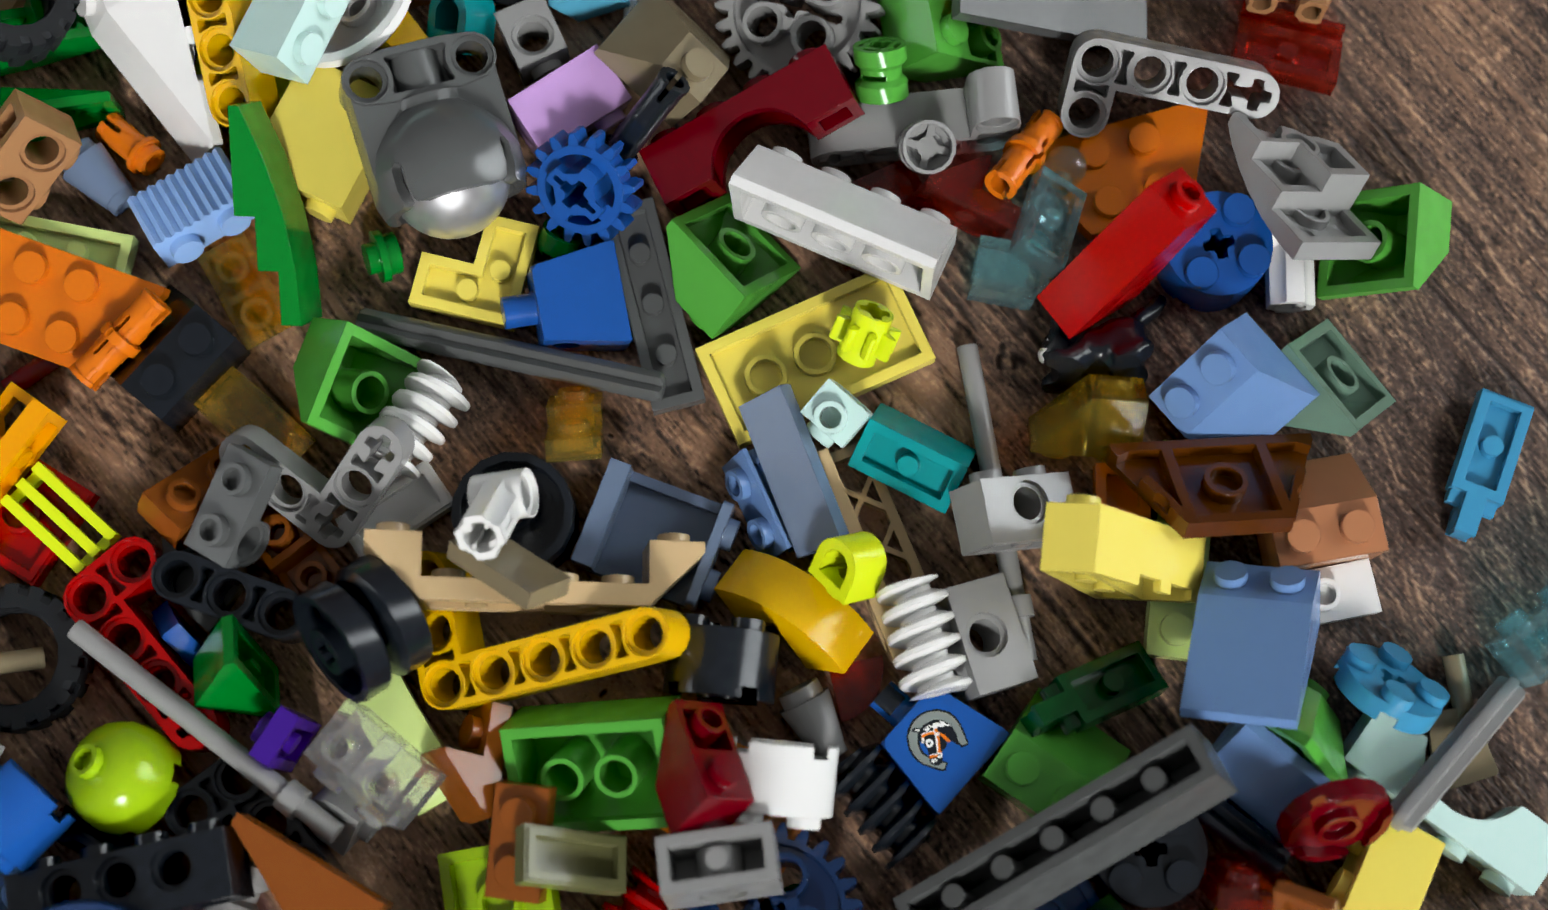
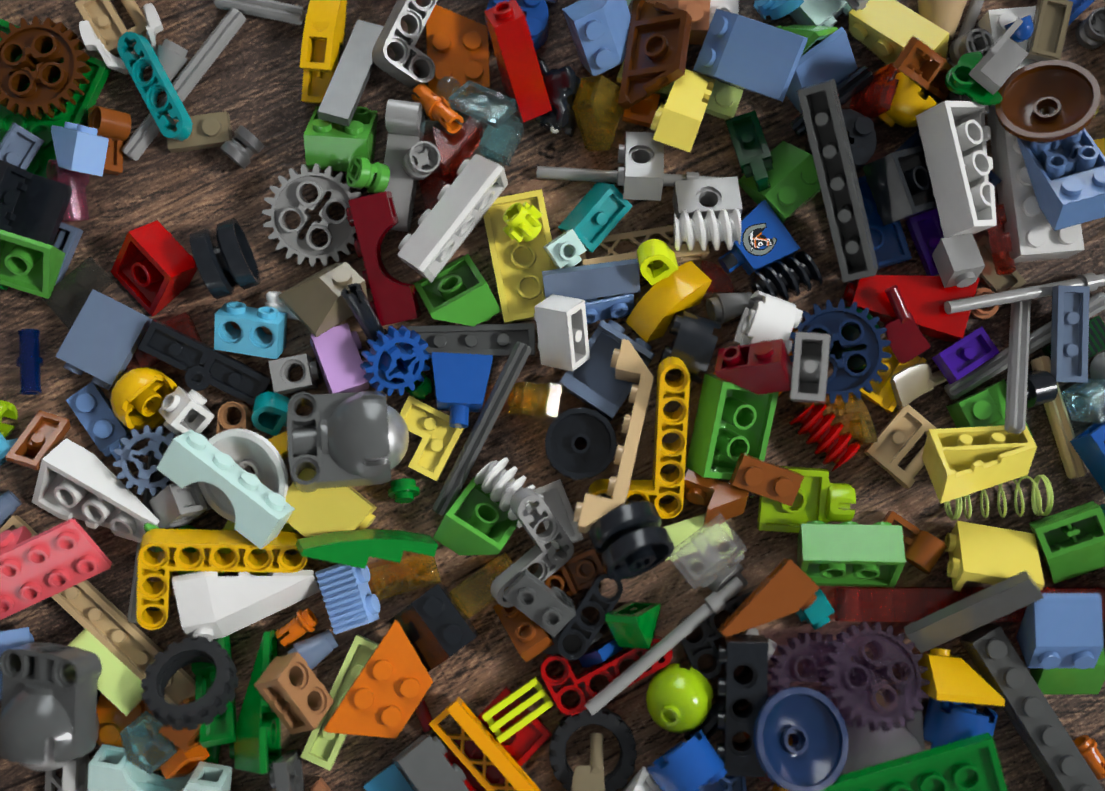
camera: 75 degrees left, 5 degrees up
(120, 339) = (421, 652): orange pin -> none
(282, 738) = (677, 602): dark purple plate -> none
(494, 508) = (579, 448): white piece -> none
(514, 574) = (618, 448): dark tan tile -> none
(570, 859) = (785, 452): olive tile -> none
(694, 442) = (562, 332): none -> white brick
(1334, 816) = (854, 43): dark red tile -> none

